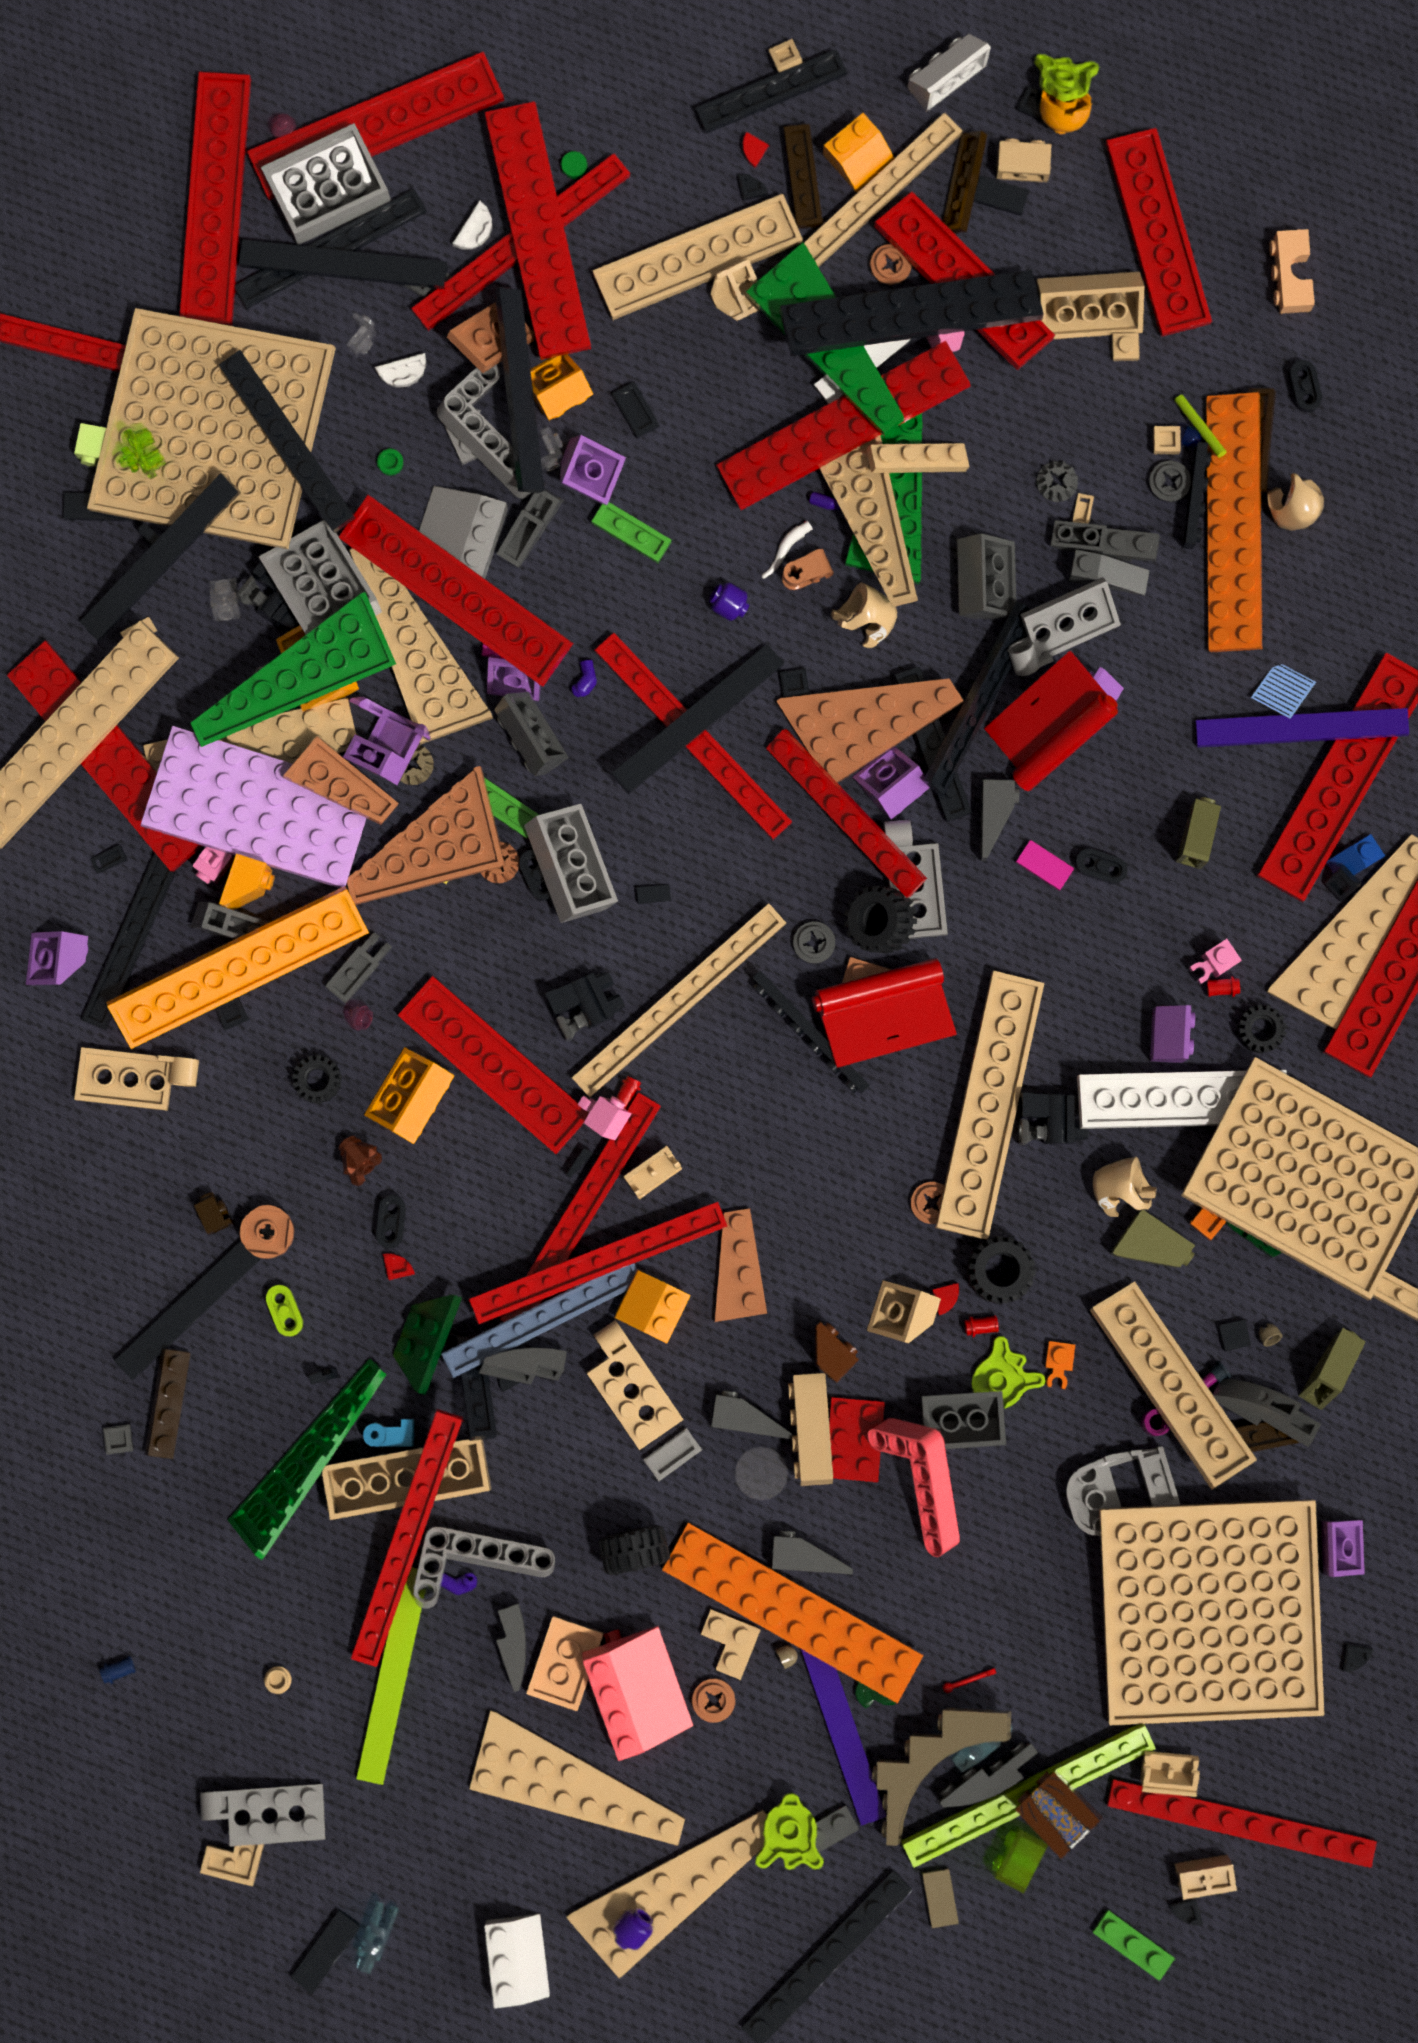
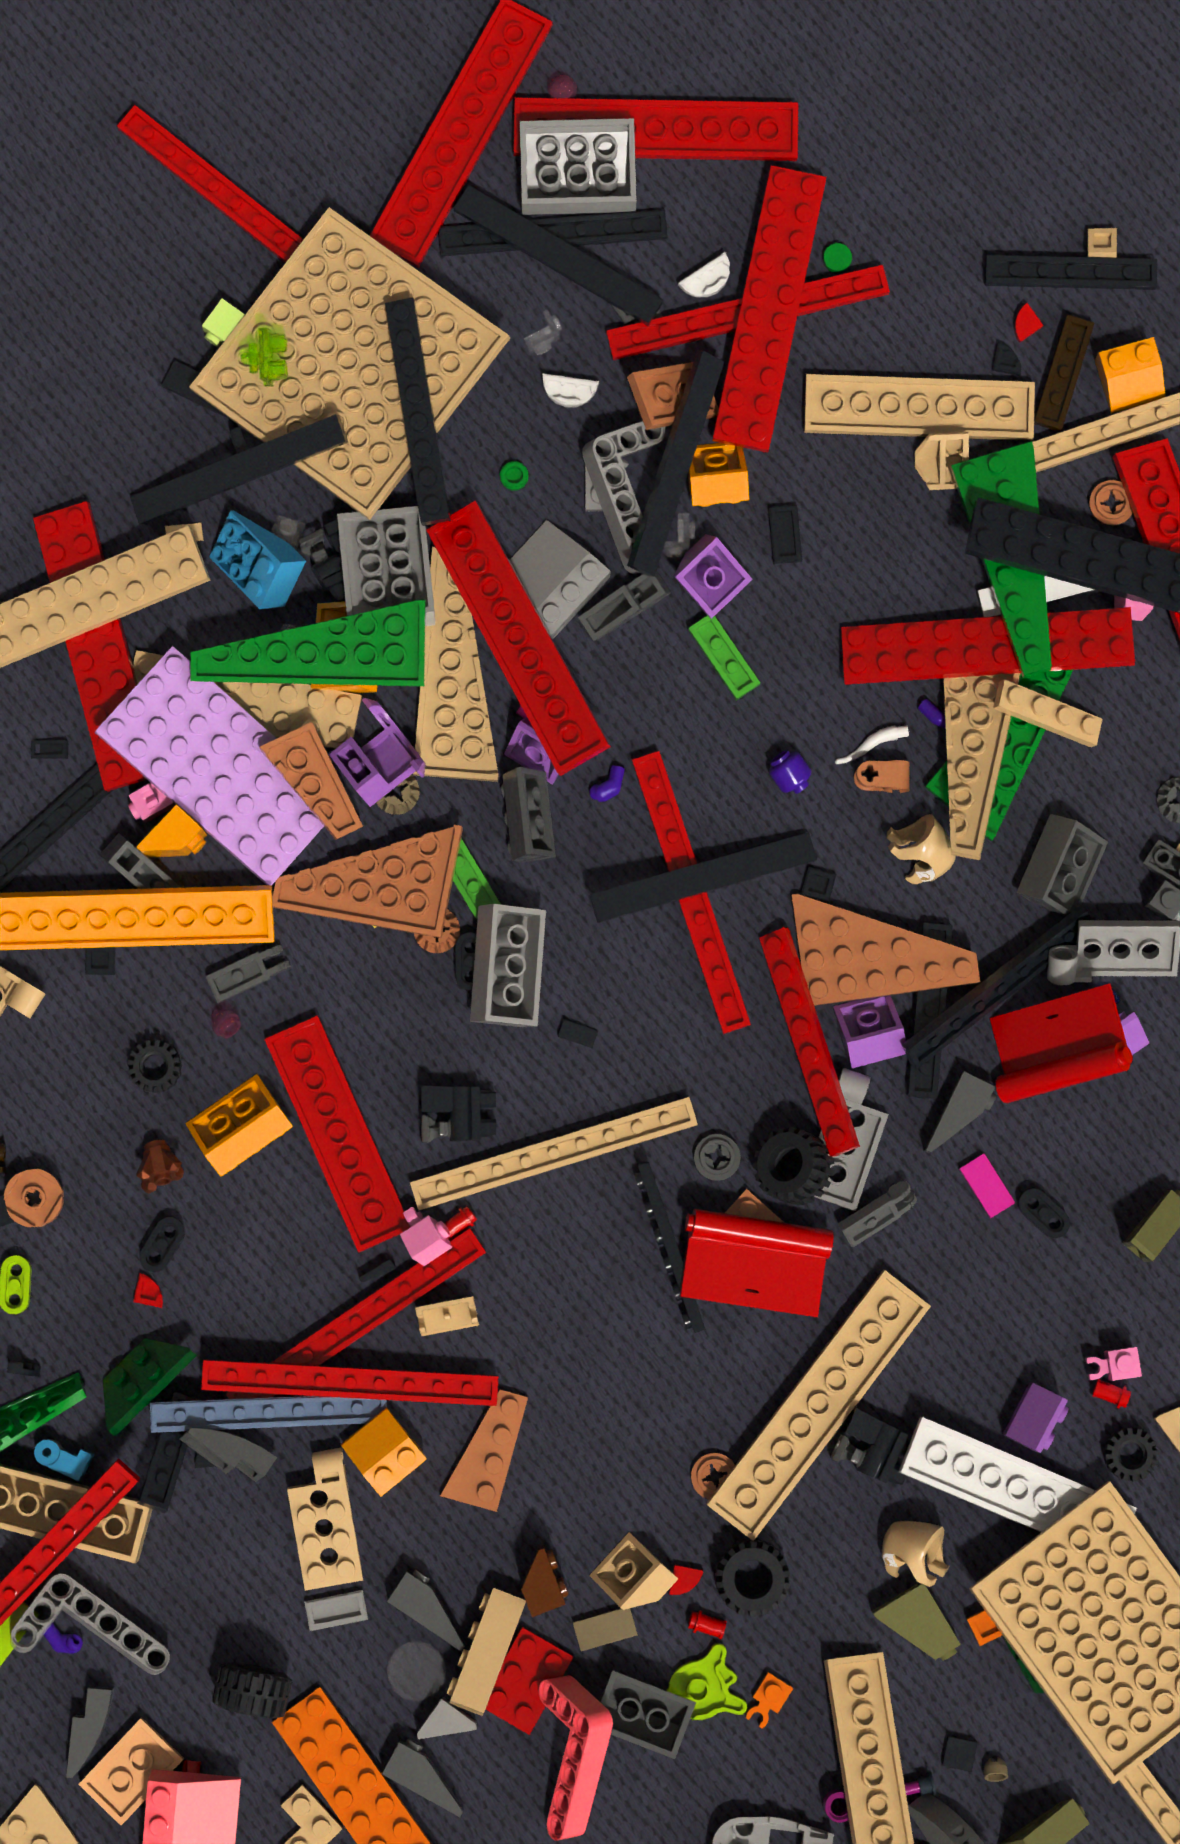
camera: 25 degrees right, 0 degrees up
(210, 626) = (257, 561): none -> dark azure slope
(803, 1501) = (446, 1720): none -> light grey slope
(899, 1367) = (604, 1628): none -> dark tan tile
(967, 928) = (878, 1213): none -> dark grey hinge

